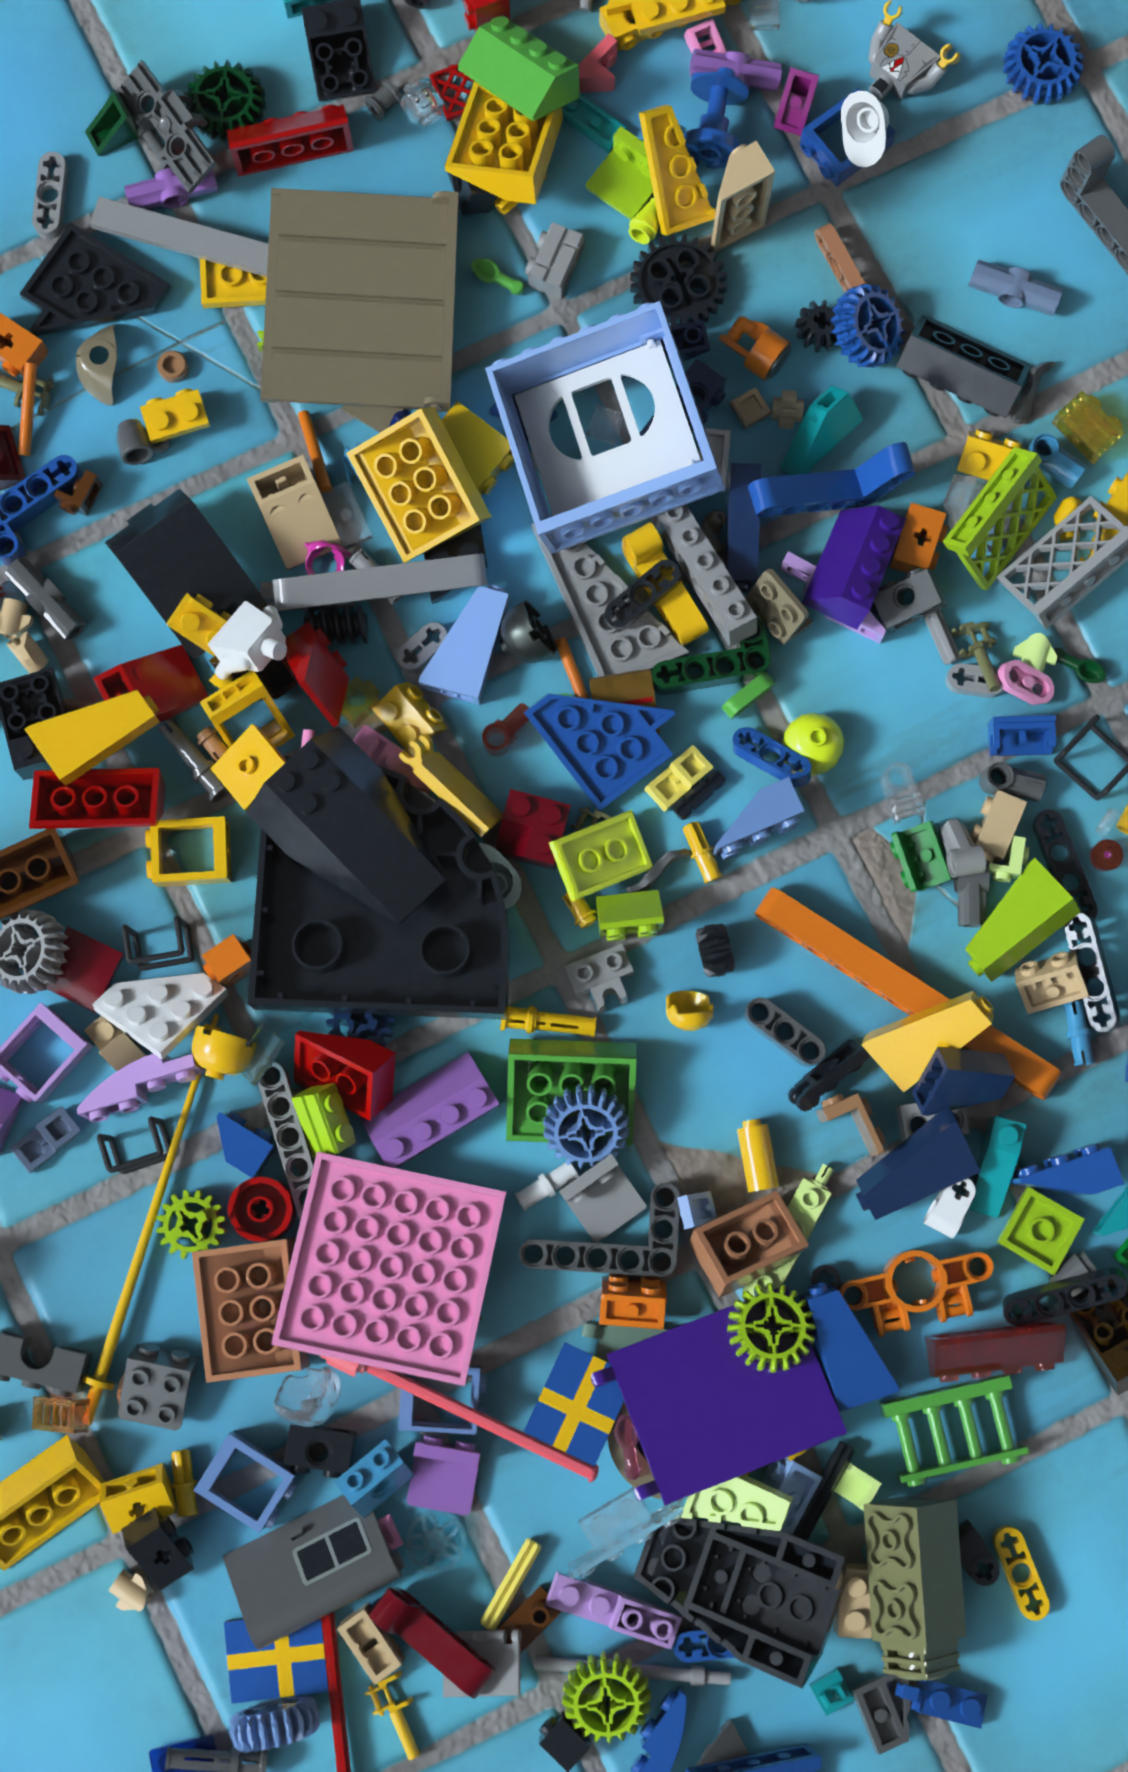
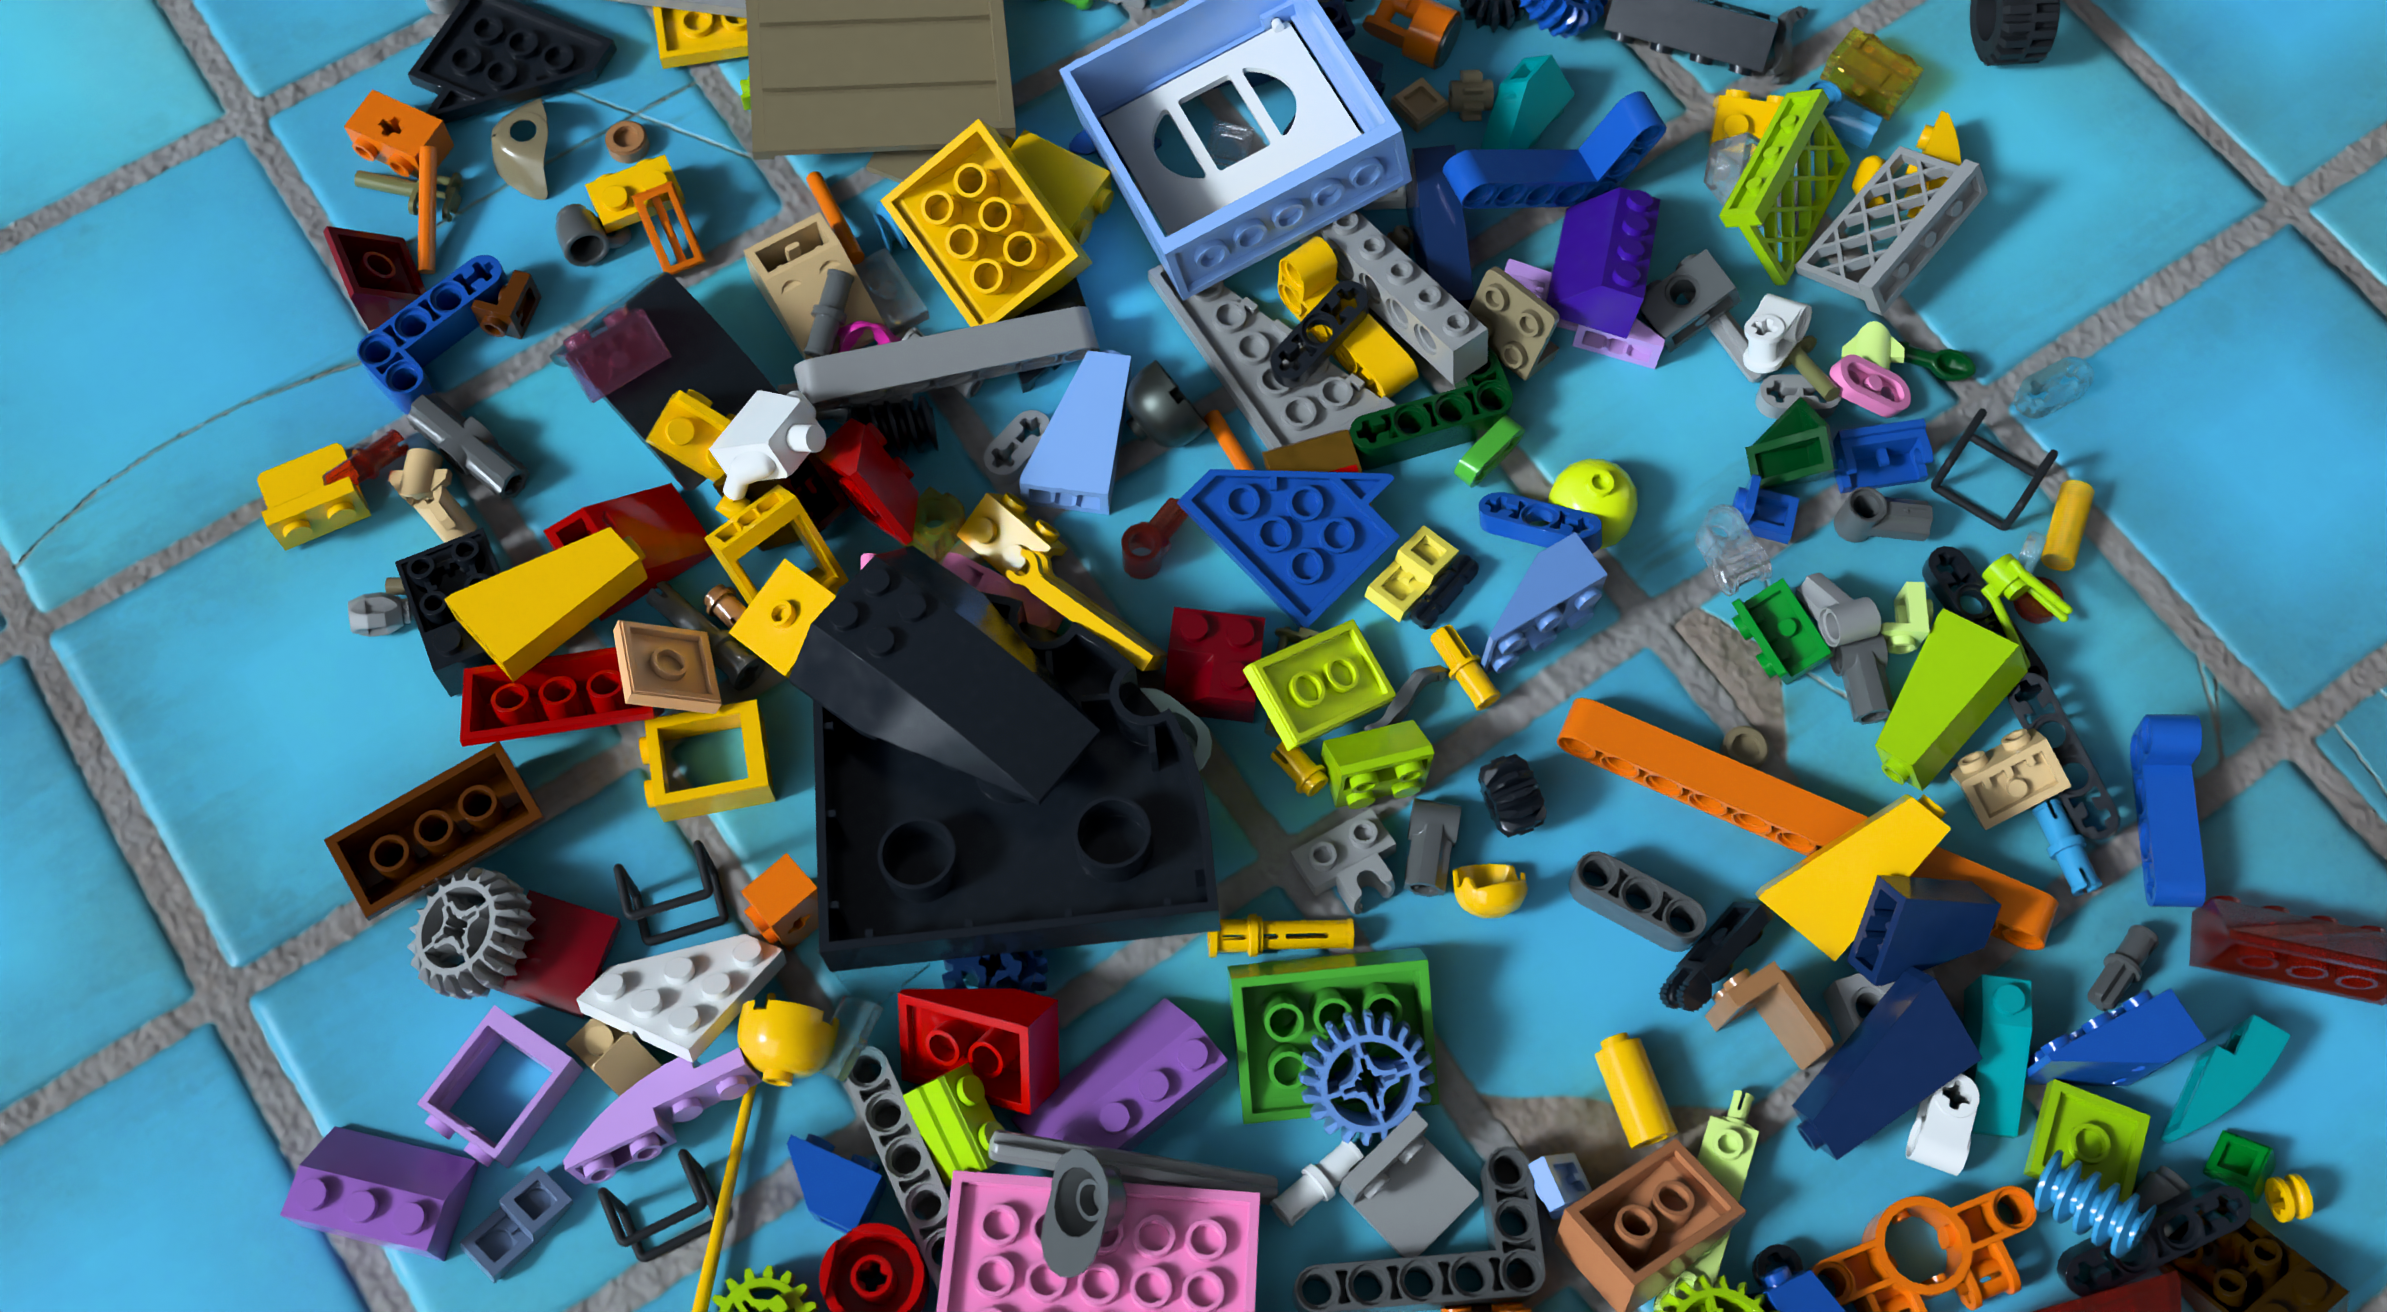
camera: 10 degrees left, 15 degrees down
(148, 561) = (614, 352): none -> clear pink bracket
(167, 789) = (666, 667): none -> light nougat tile
(188, 423) = (654, 193): none -> orange tile
(301, 535) = (829, 313): none -> dark grey pin
(392, 1189) = (1081, 1208): none -> dark grey piece
(429, 1164) = (1134, 1166): none -> light grey axle
(658, 969) = (1432, 835): none -> dark grey piece
(880, 935) = (1745, 746): none -> dark tan tile
(921, 523) = (1681, 225): orange brick -> none
(931, 767) = (1766, 512): none -> blue bracket
(958, 723) = (1793, 449): none -> dark green slope
(964, 635) = (1774, 332): none -> white piece
(998, 825) = (1880, 569): tan brick -> none
(1025, 1274) = (2091, 1206): none -> dark azure piece
(1088, 842) = (2011, 580): none -> lime plant
(1094, 1120) = (2123, 967): none -> dark grey axle

